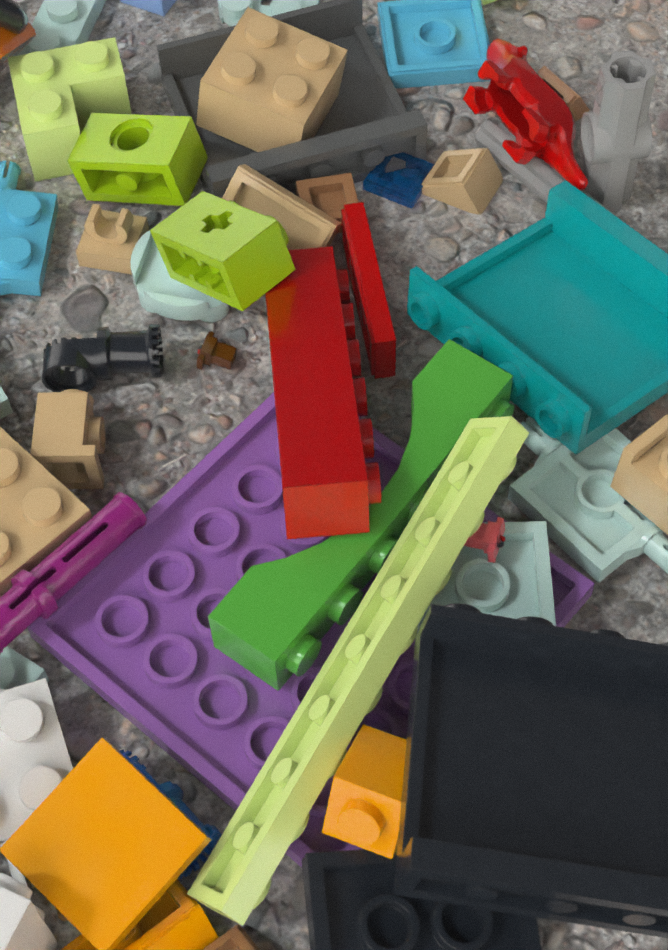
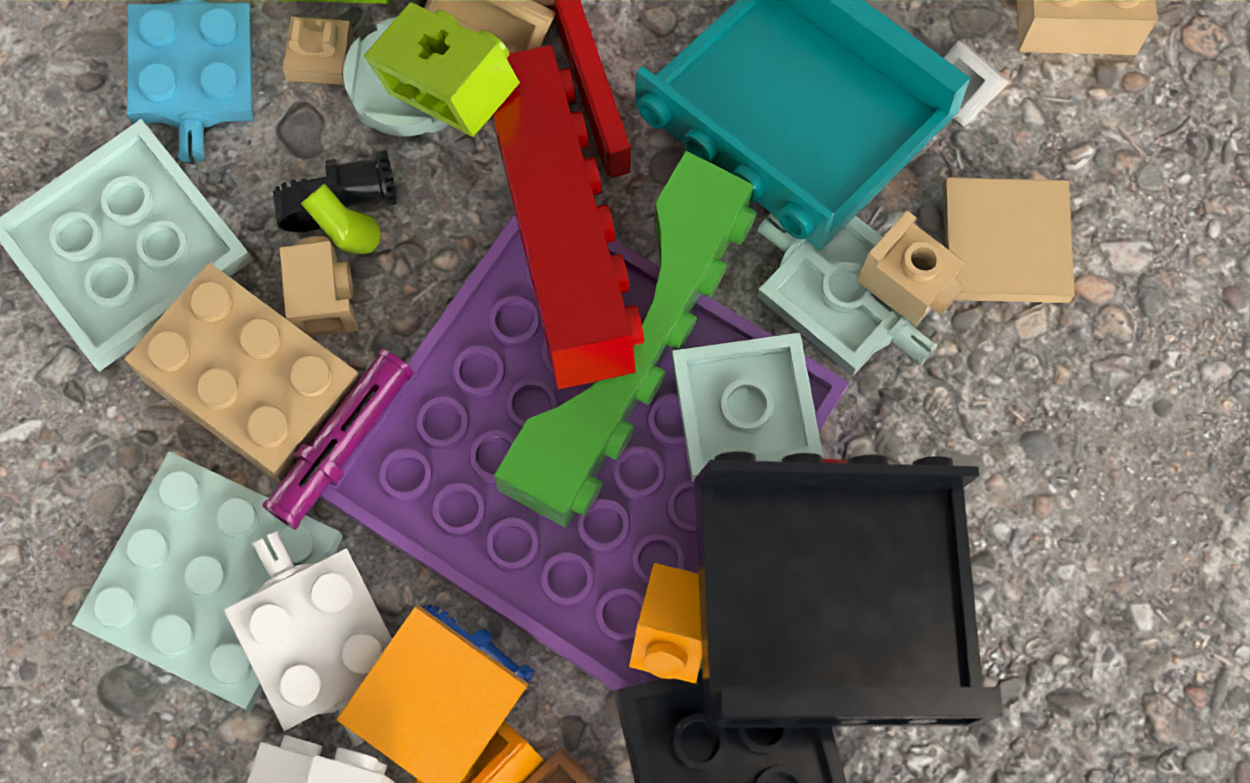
camera: 10 degrees left, 15 degrees up
(108, 387) = (347, 228): none -> lime arm
(215, 353) = (446, 169): reddish brown piece -> none
(353, 675) = (645, 499): yellowish green plate -> none
(489, 538) = (744, 358): coral piece -> none

